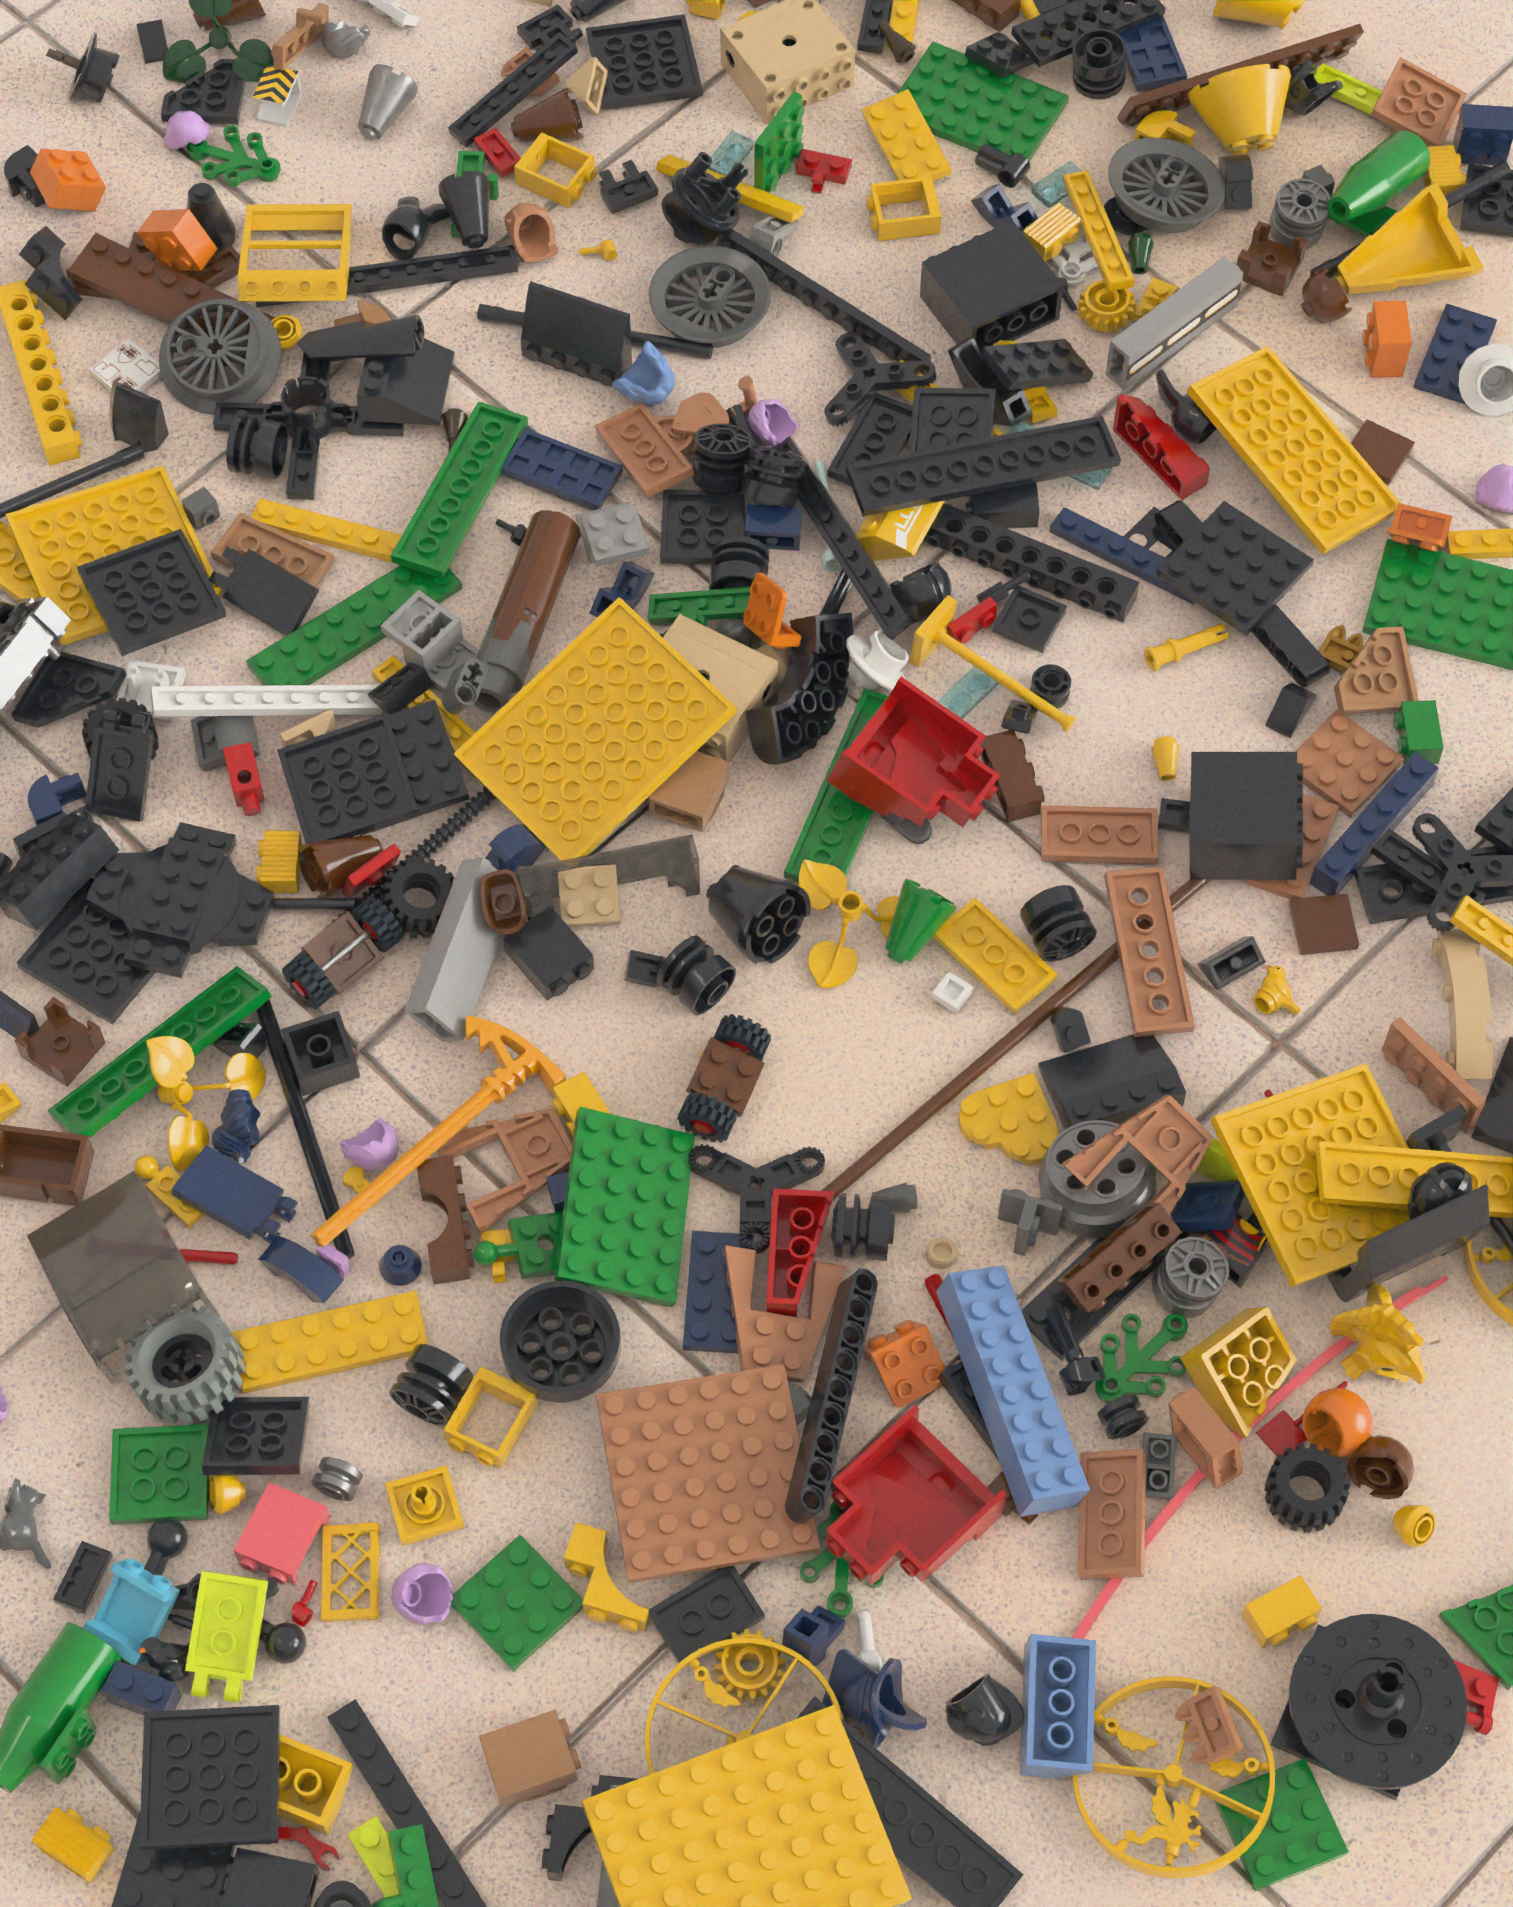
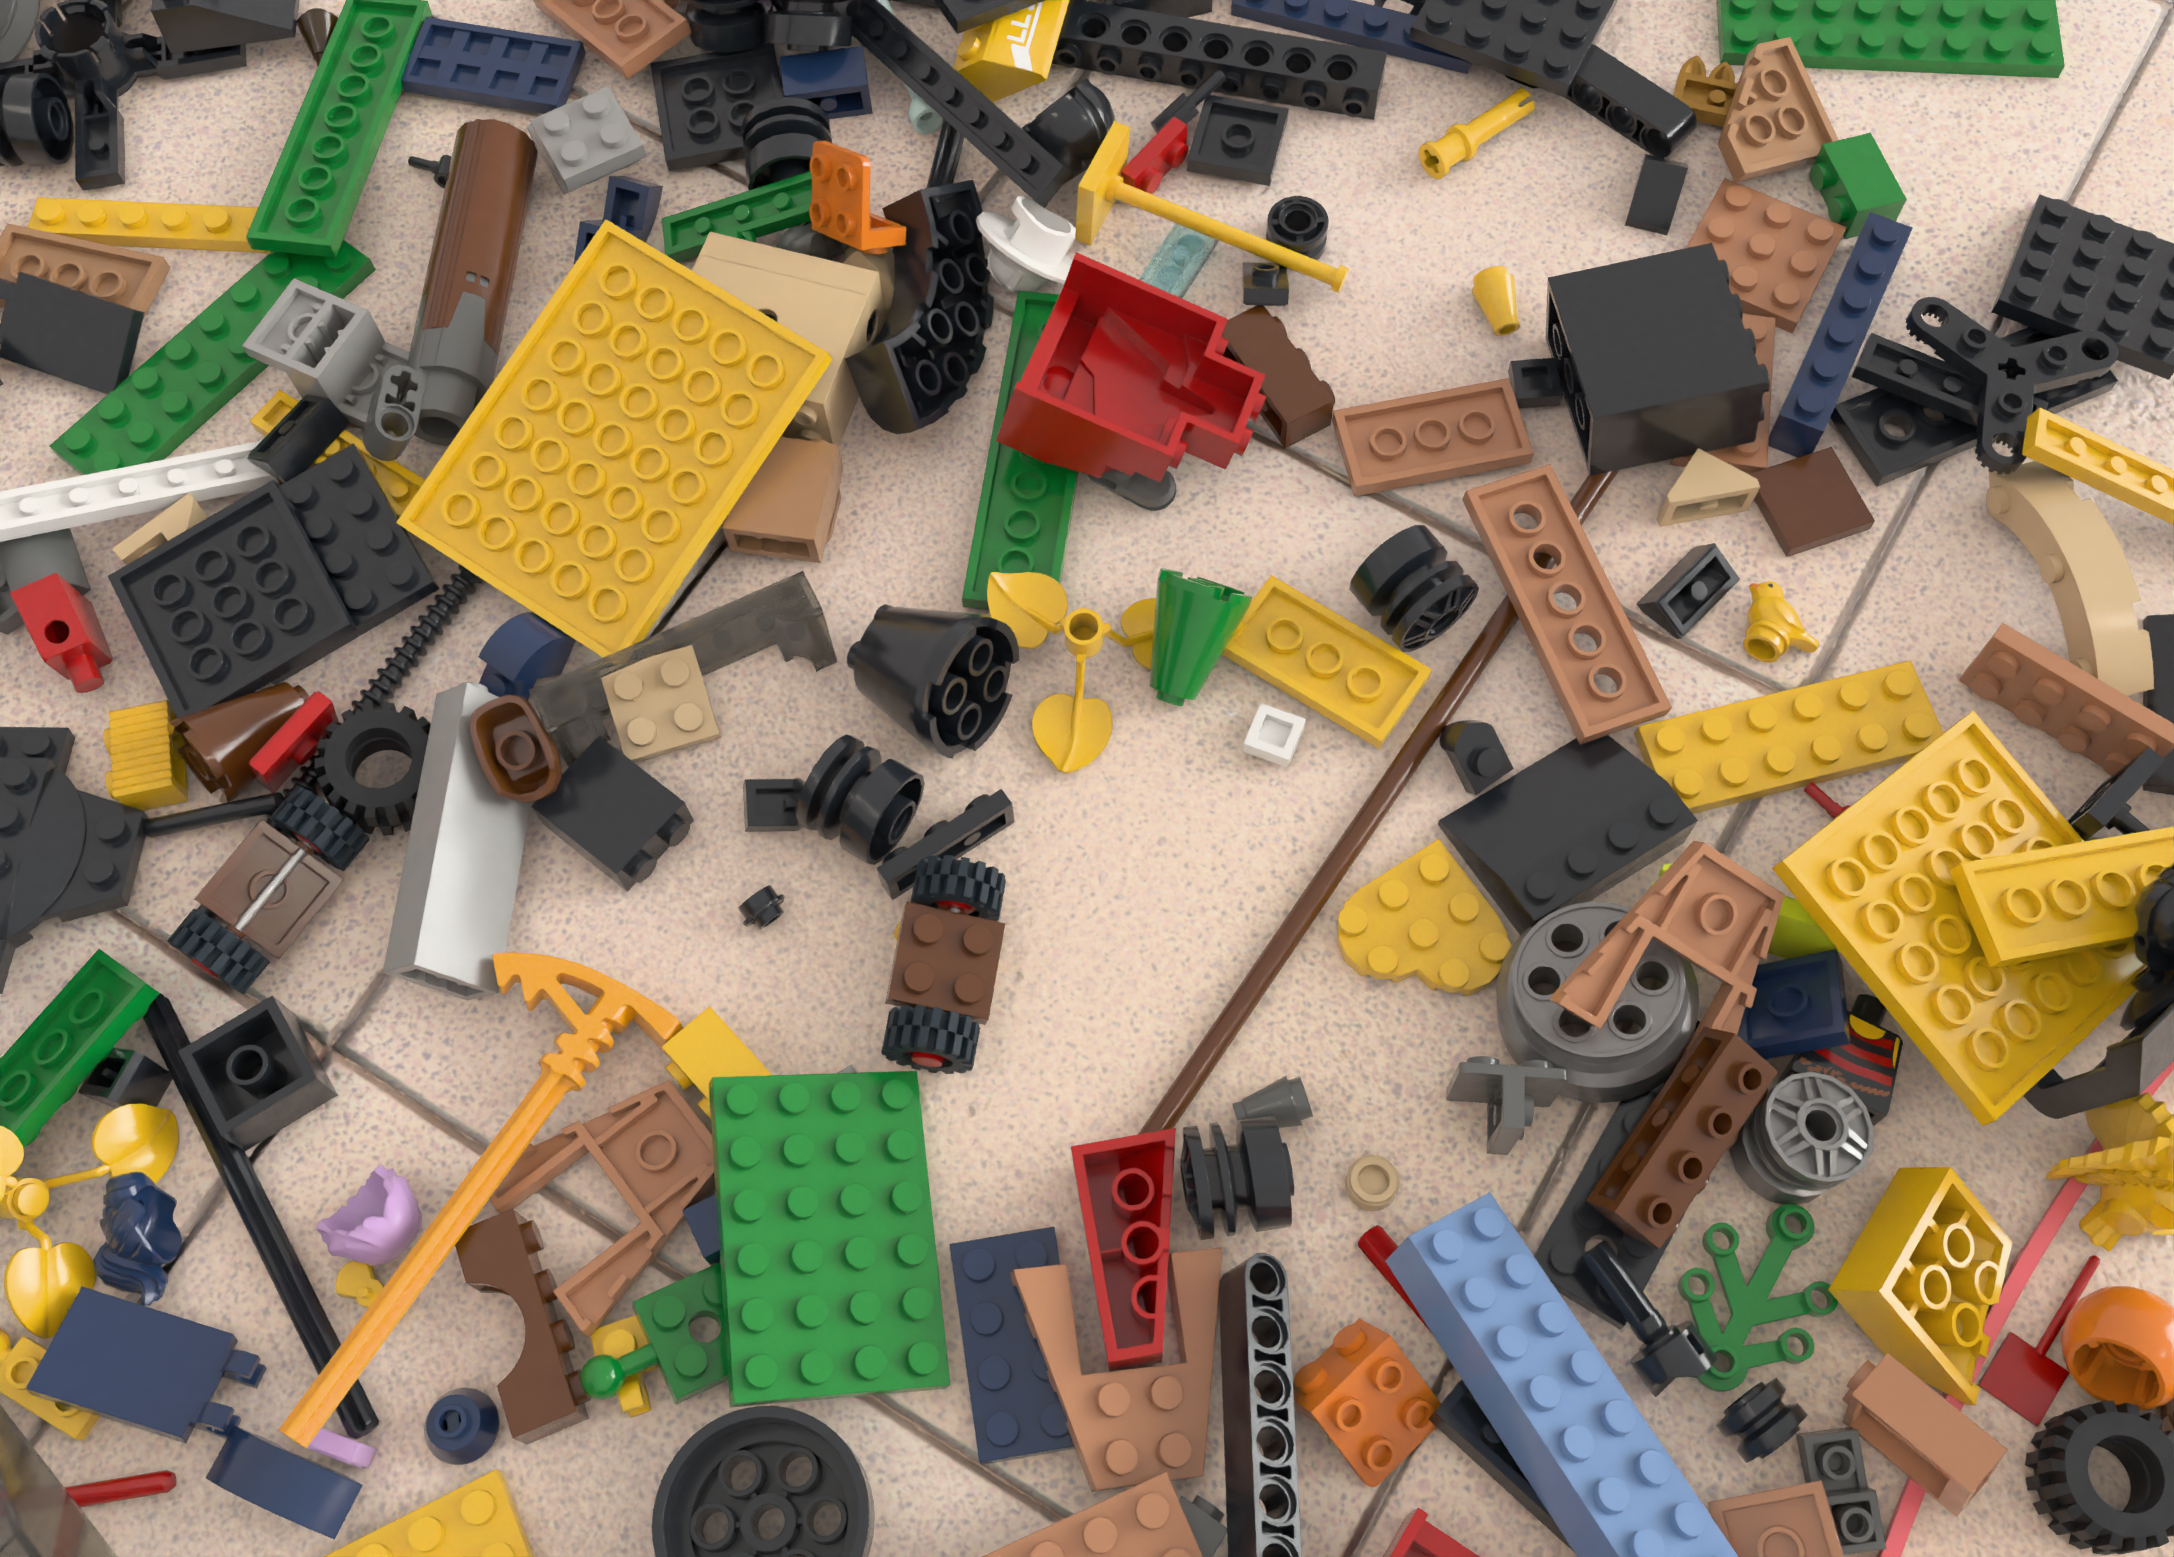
camera: 10 degrees left, 5 degrees up
(625, 1025) = (762, 907): none -> black plate
(756, 1204) = (1044, 1174): black piece -> none
(757, 1007) = (978, 823): none -> black plate
(1258, 903) = (1707, 491): none -> tan slope
(1260, 1060) = (1791, 737): none -> yellow plate

